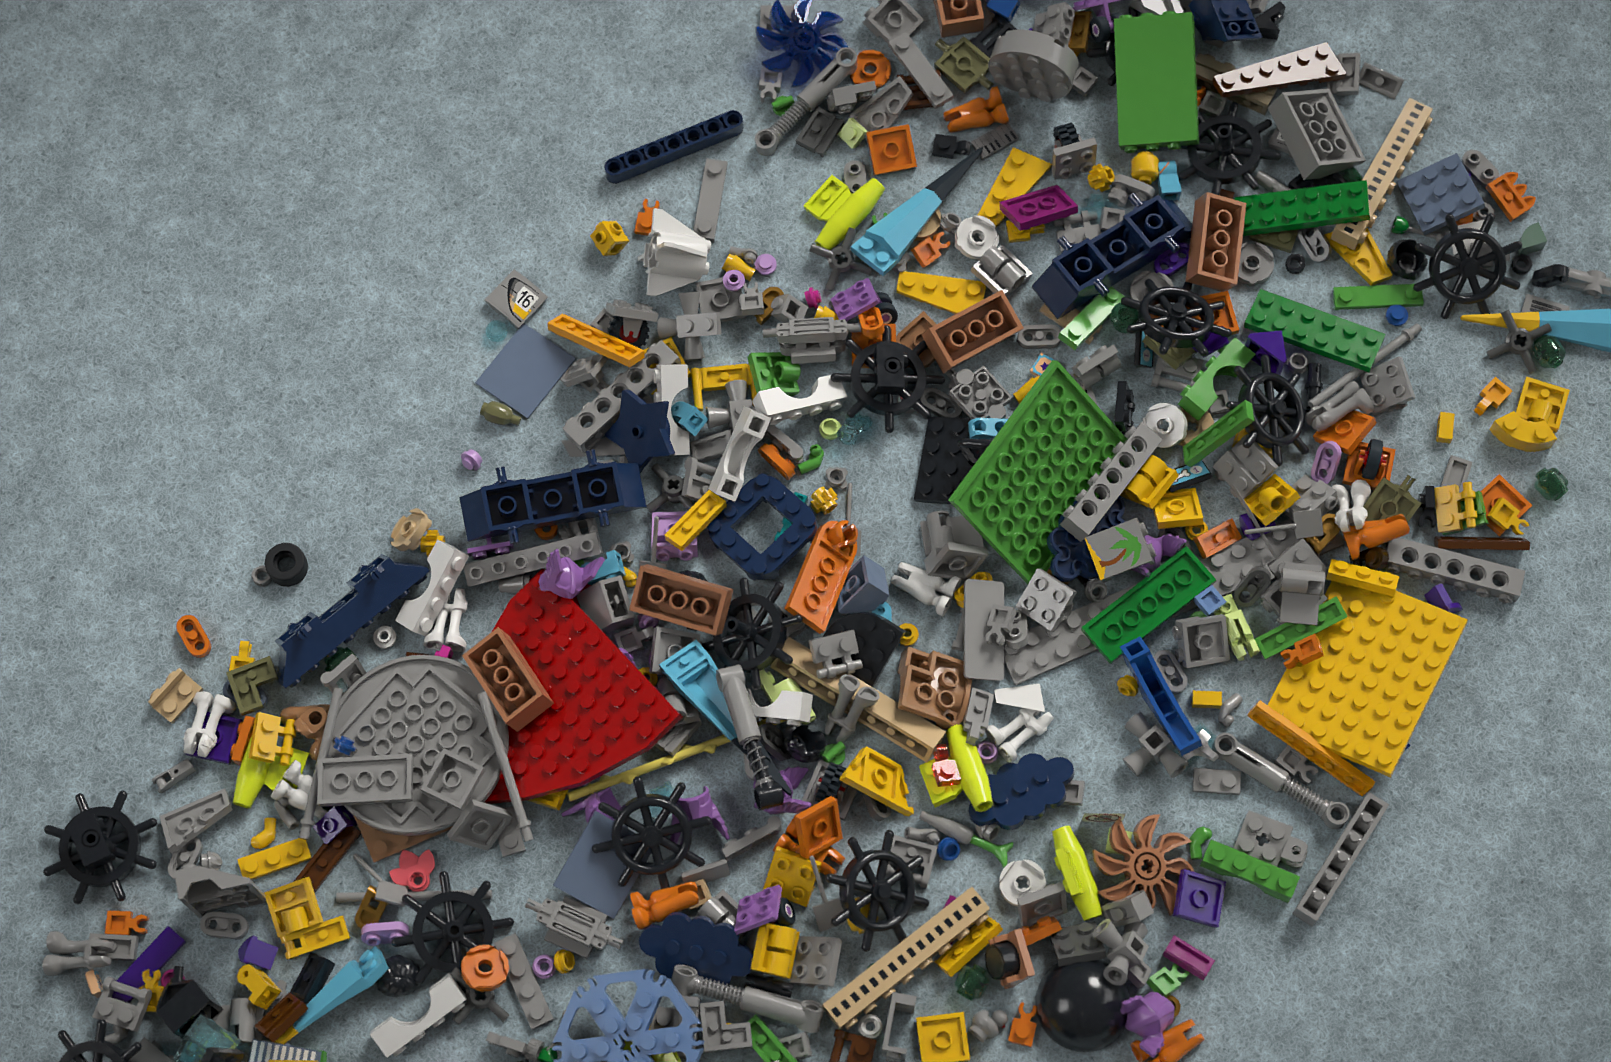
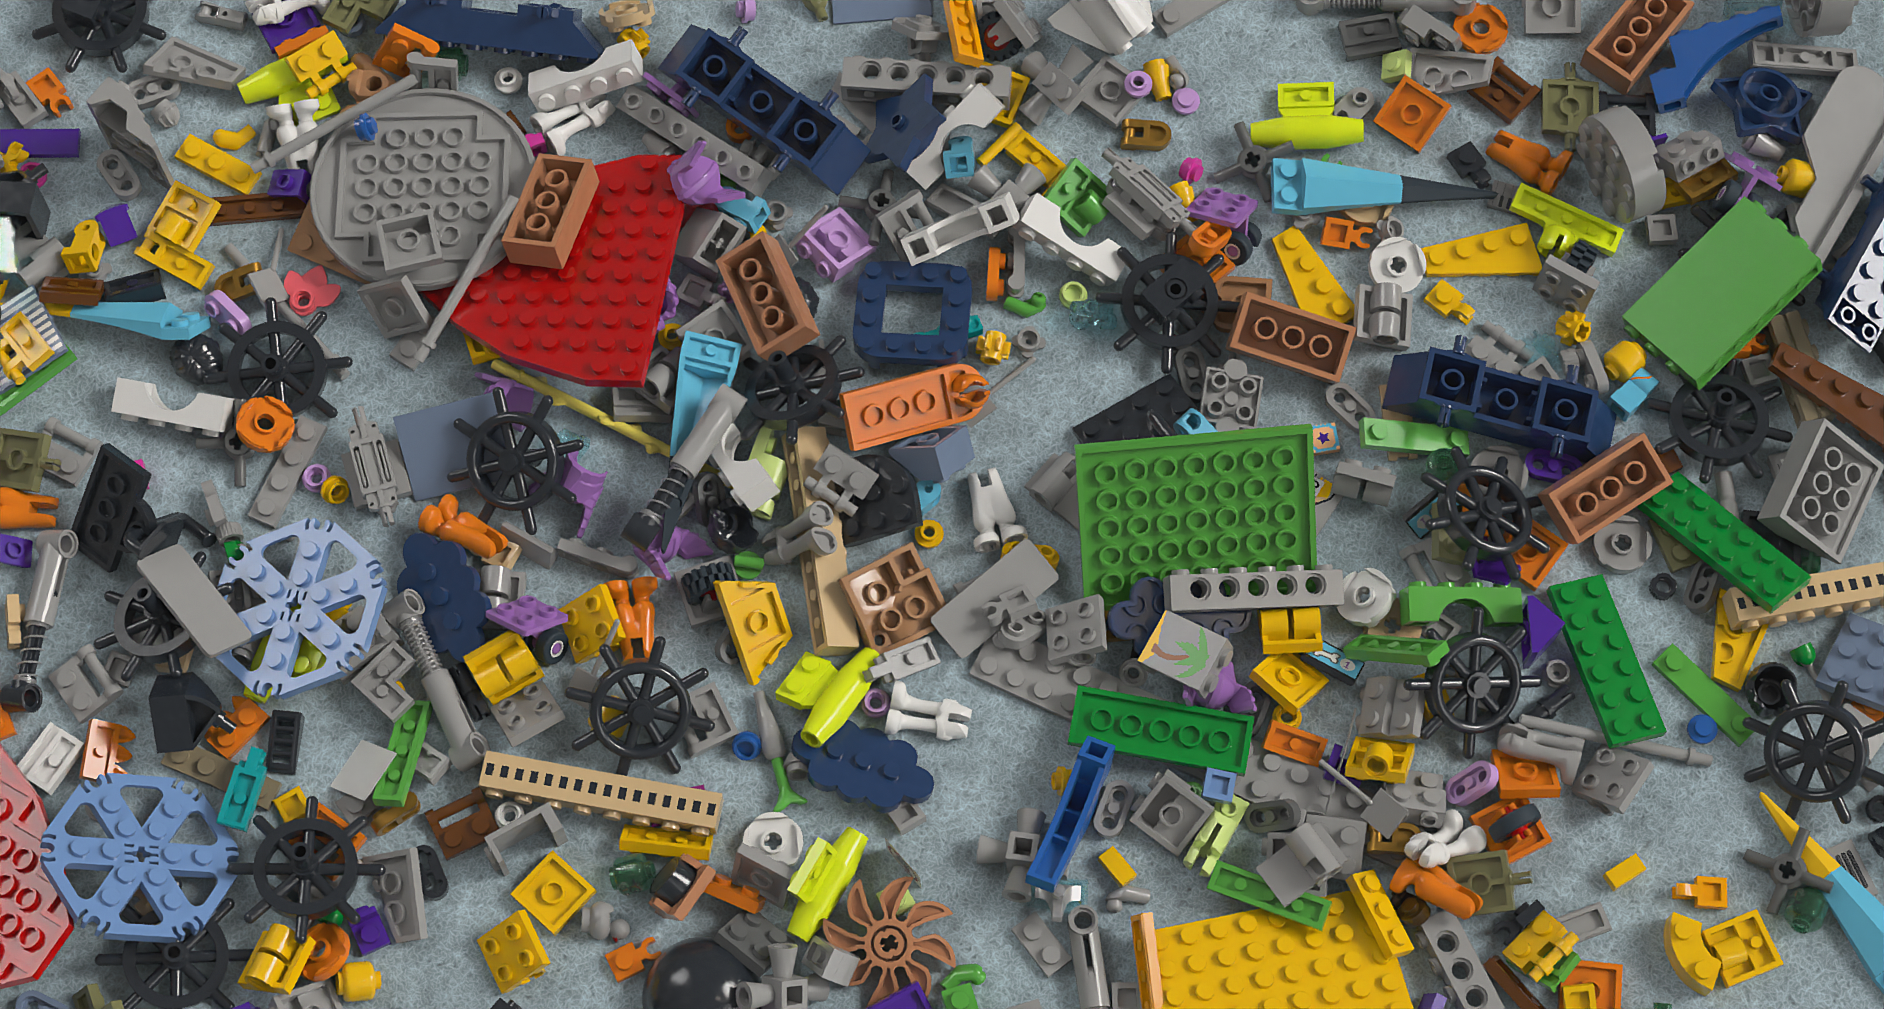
camera: 45 degrees right, 0 degrees up
(307, 682) = (396, 47): none -> orange plate
(365, 780) = (347, 171): light grey plate -> none
(695, 520) = (860, 247): yellow plate -> none
(751, 301) = (1131, 118): light grey plate -> none
(787, 308) = (1161, 163): light grey brick -> none
(818, 827) = (654, 604): orange plate -> none
(920, 70) = (1521, 72): light grey plate -> none
(930, 836) = (744, 717): light grey arm -> none
(944, 770) = (818, 675): clear red plate -> none
(955, 560) = (1037, 513): light grey plate -> none
(1021, 696) = (960, 690): white sticker -> none
(1033, 128) = (1564, 223): none -> neon yellow plate
(1038, 207) = (1482, 295): magenta plate -> none
(1124, 407) = (1346, 543): black plate -> none
(1305, 652) = (1247, 918): orange plate -> none

